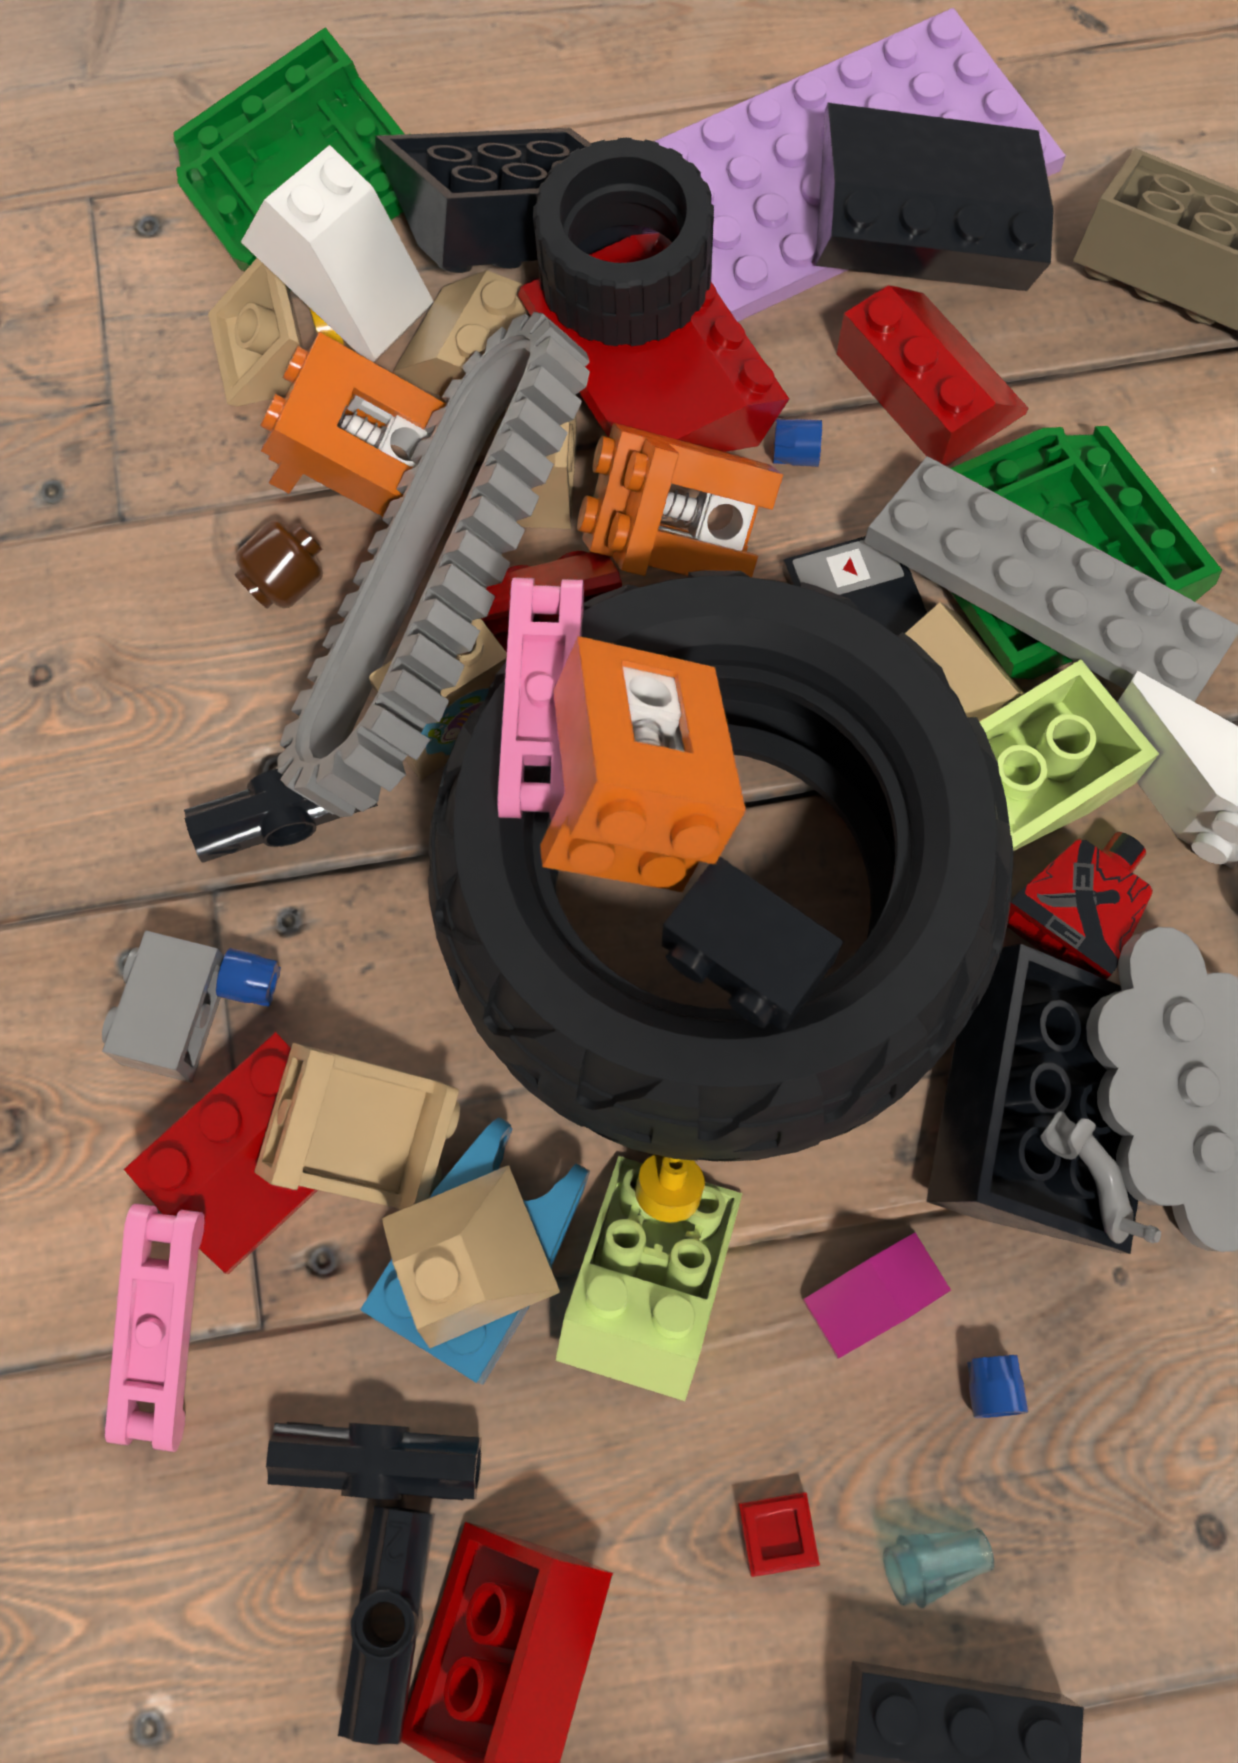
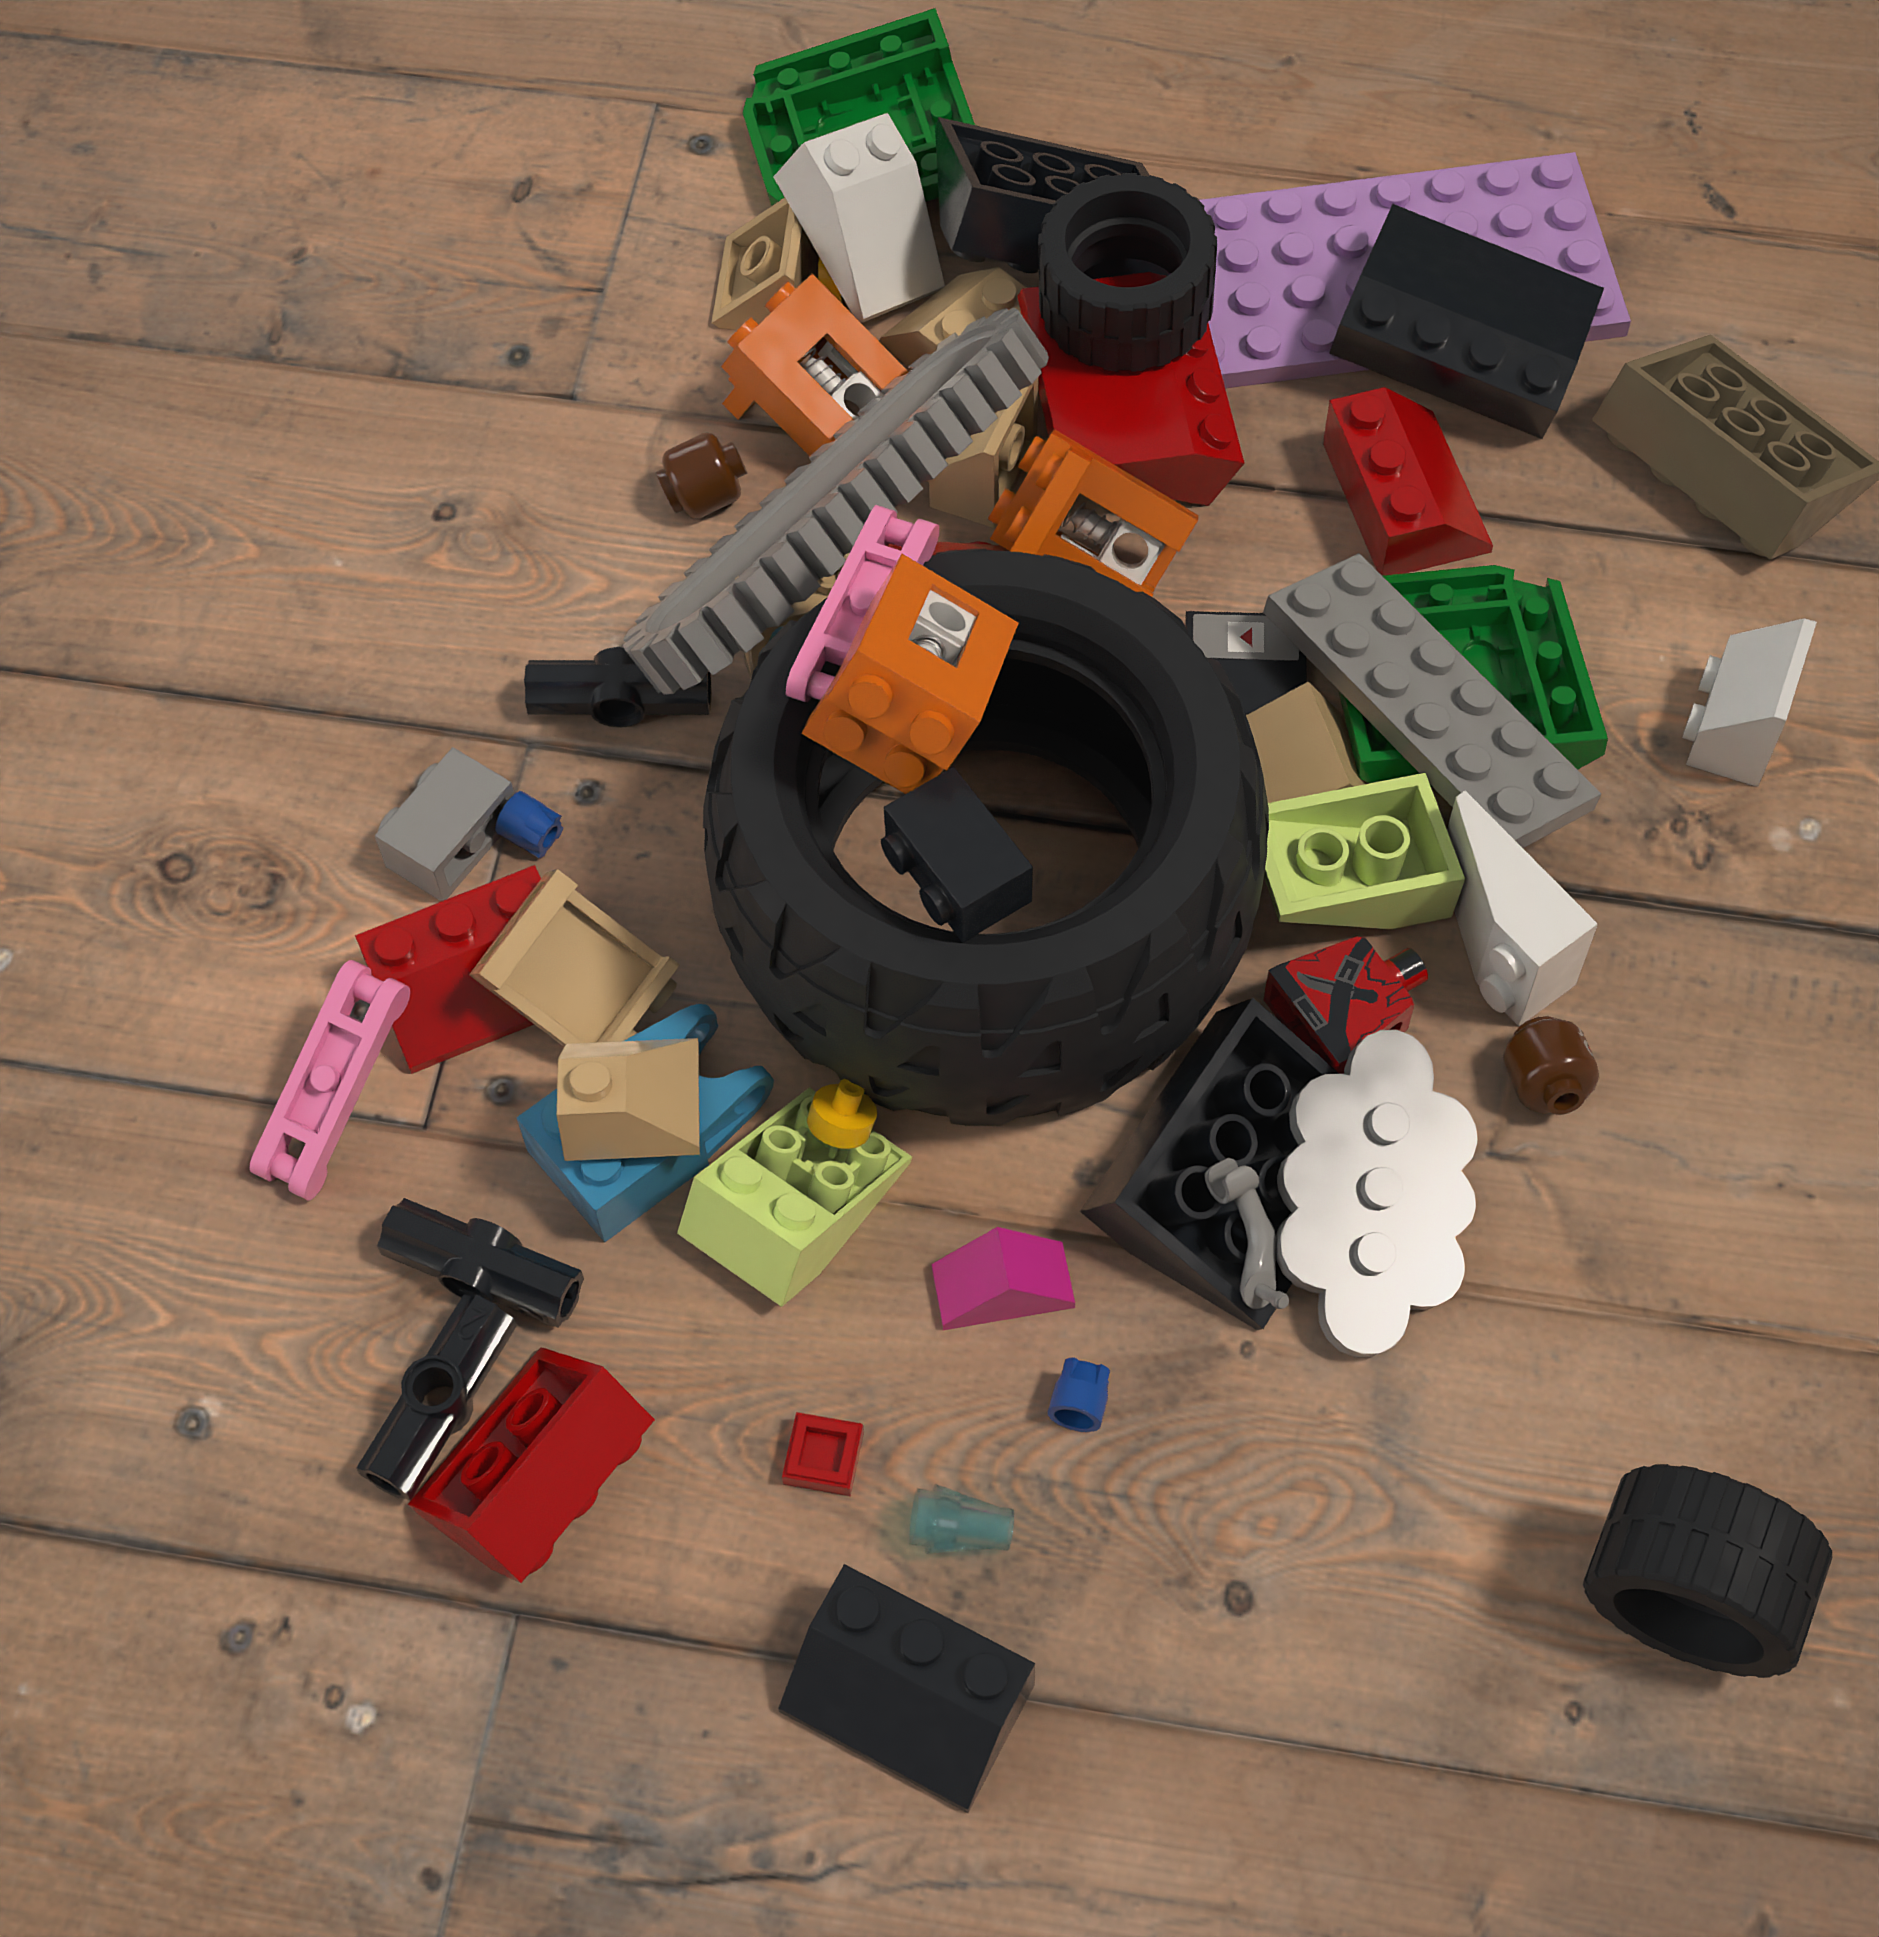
camera: 20 degrees right, 10 degrees down
(798, 442) = (1245, 510): blue hose -> none

